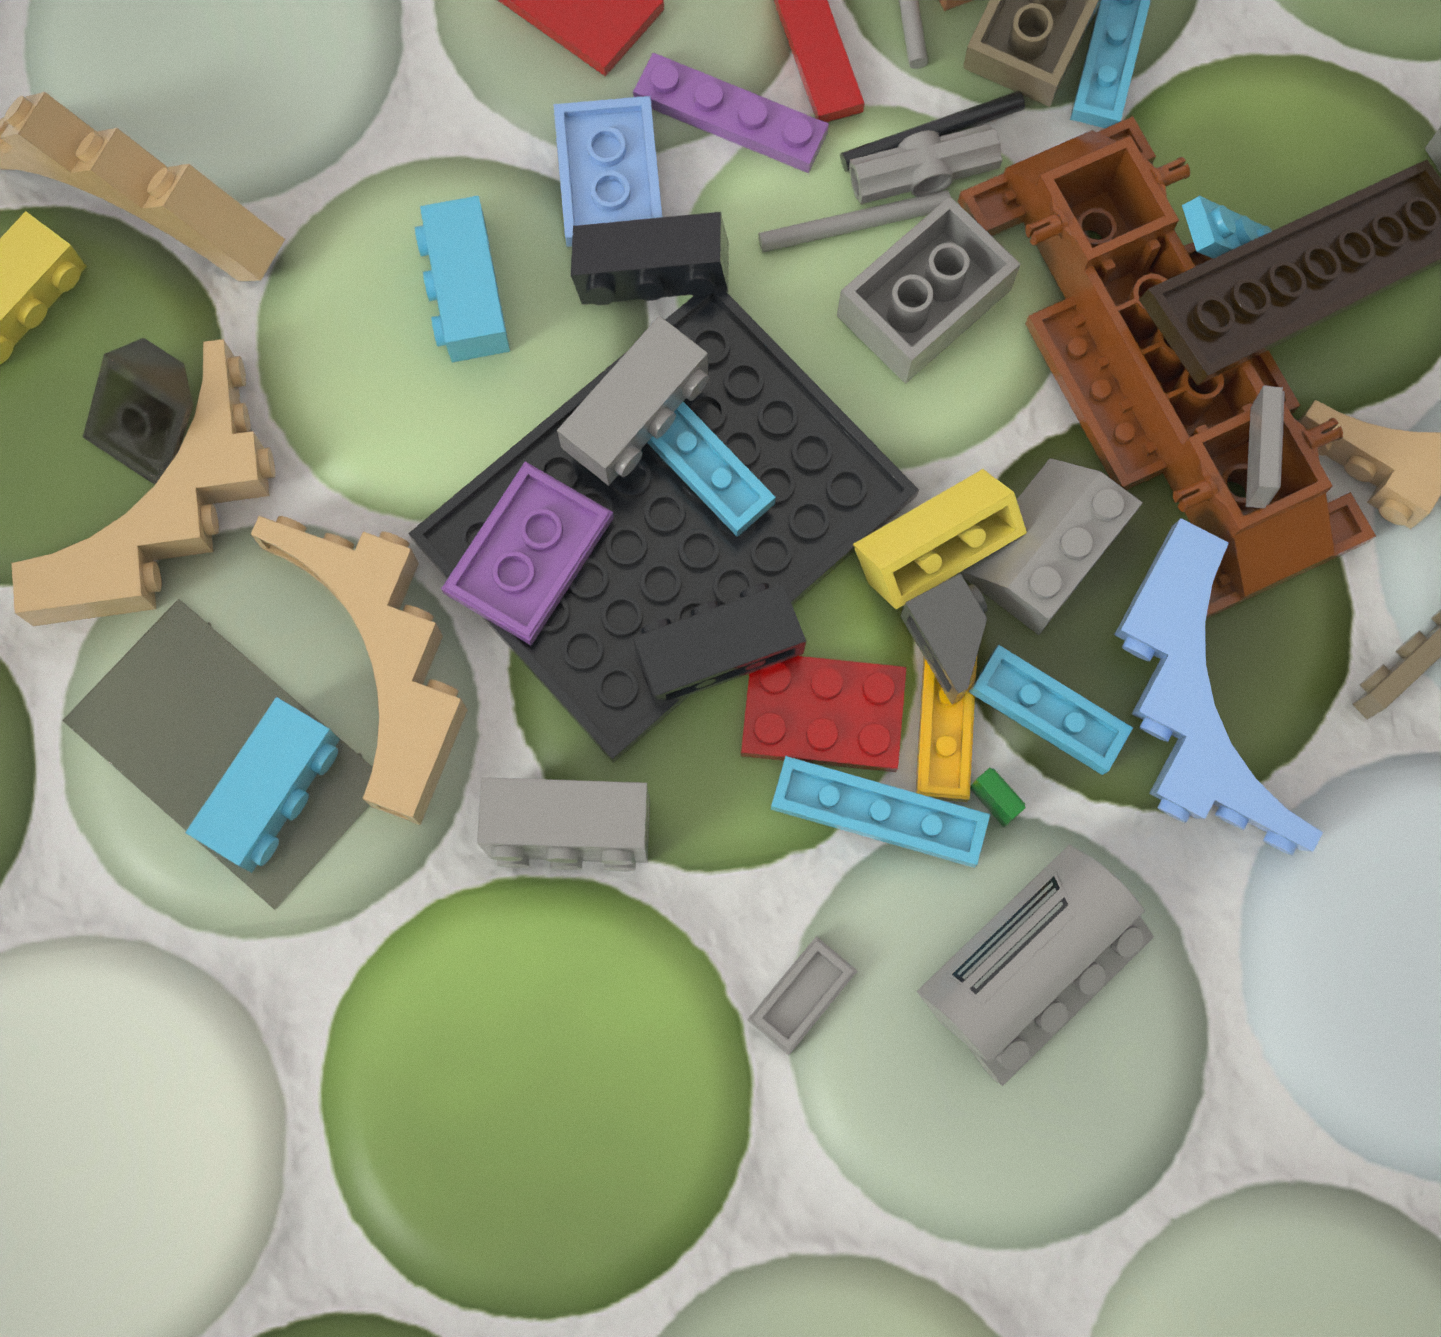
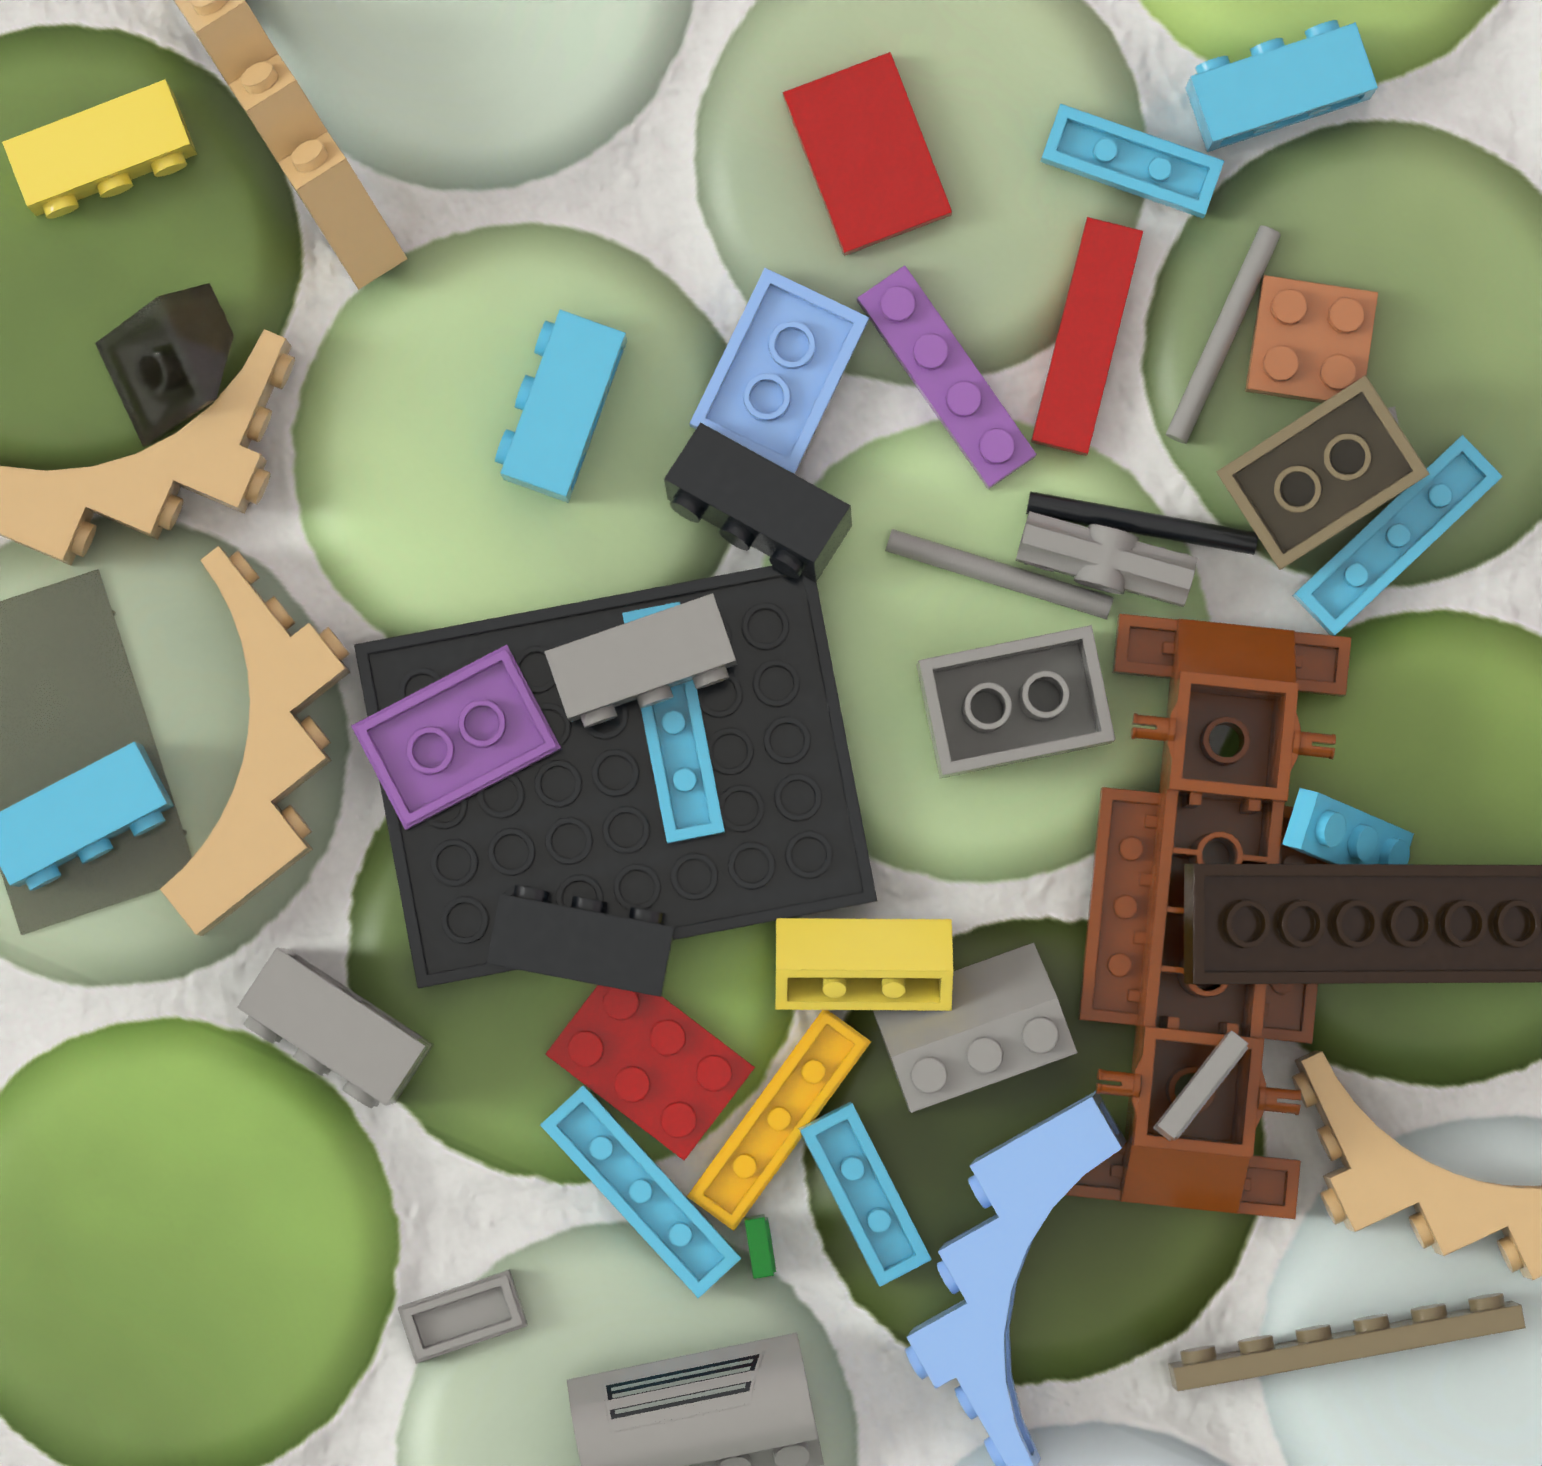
camera: 30 degrees right, 10 degrees up
(948, 631) = (812, 1063): dark grey slope -> none

